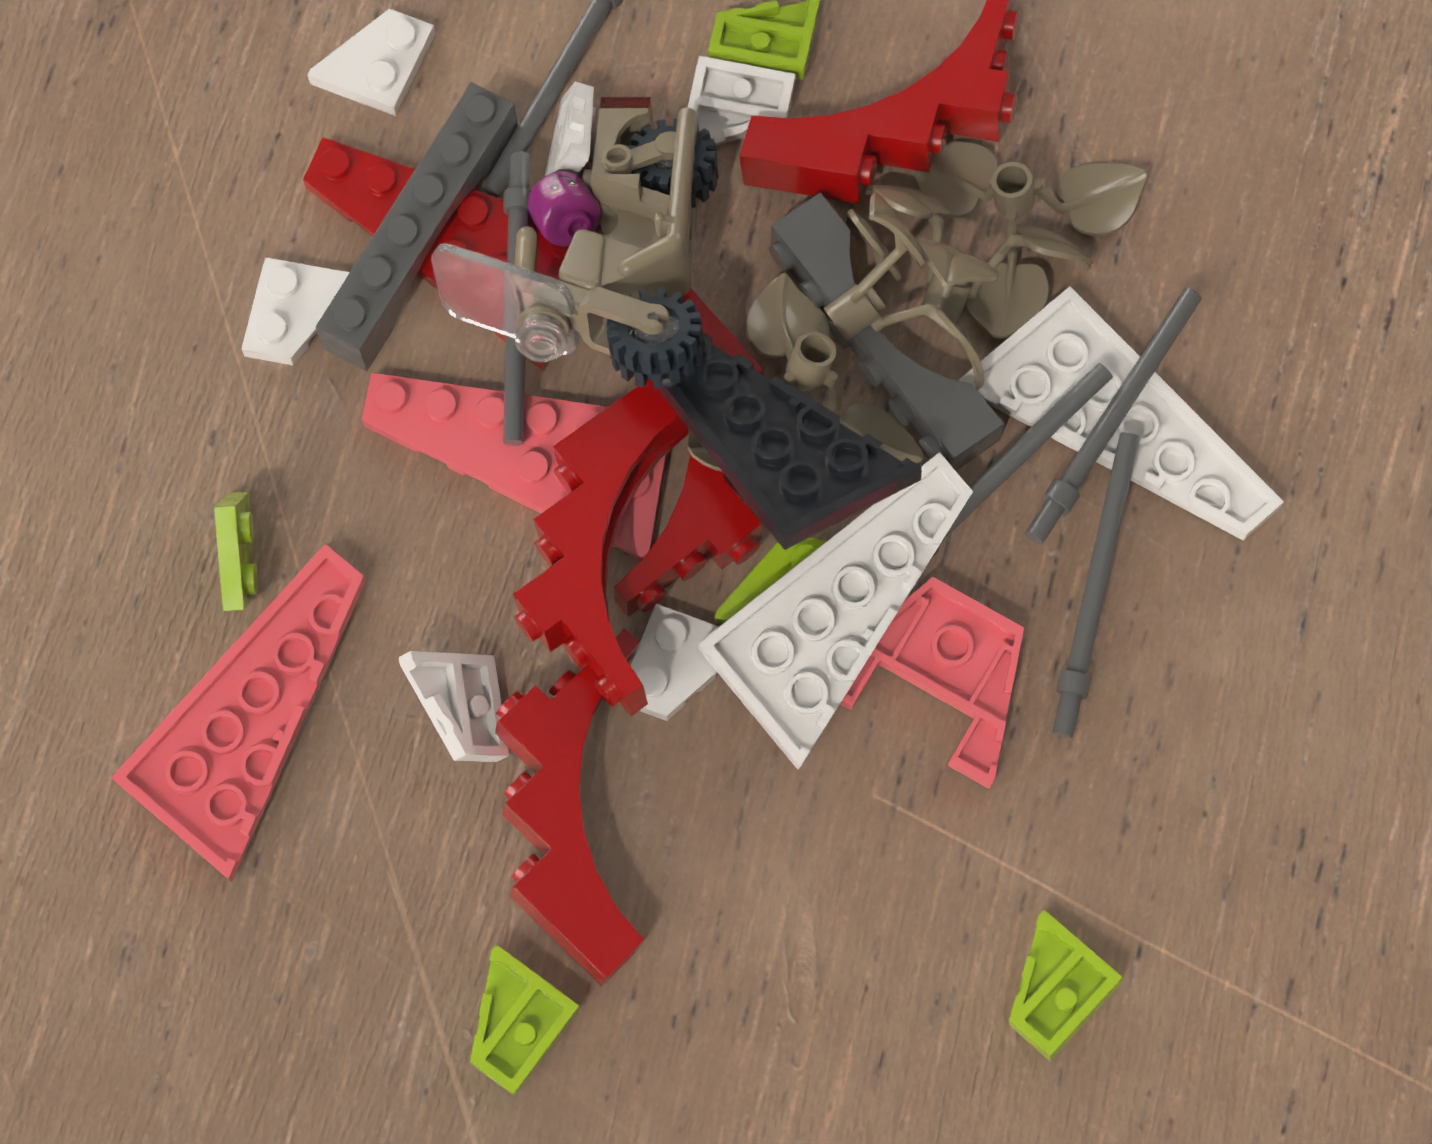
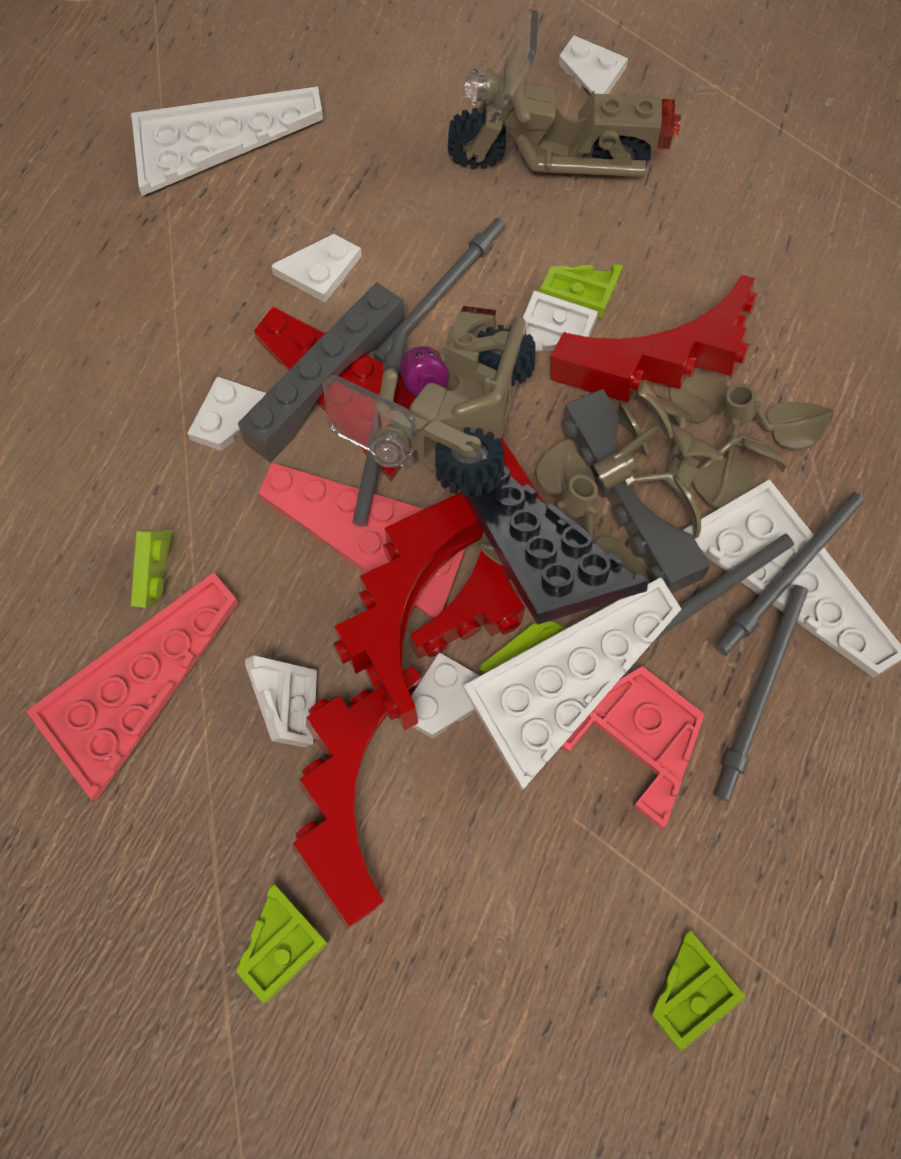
camera: 10 degrees right, 5 degrees down
(572, 131) = (441, 322): white wing -> none

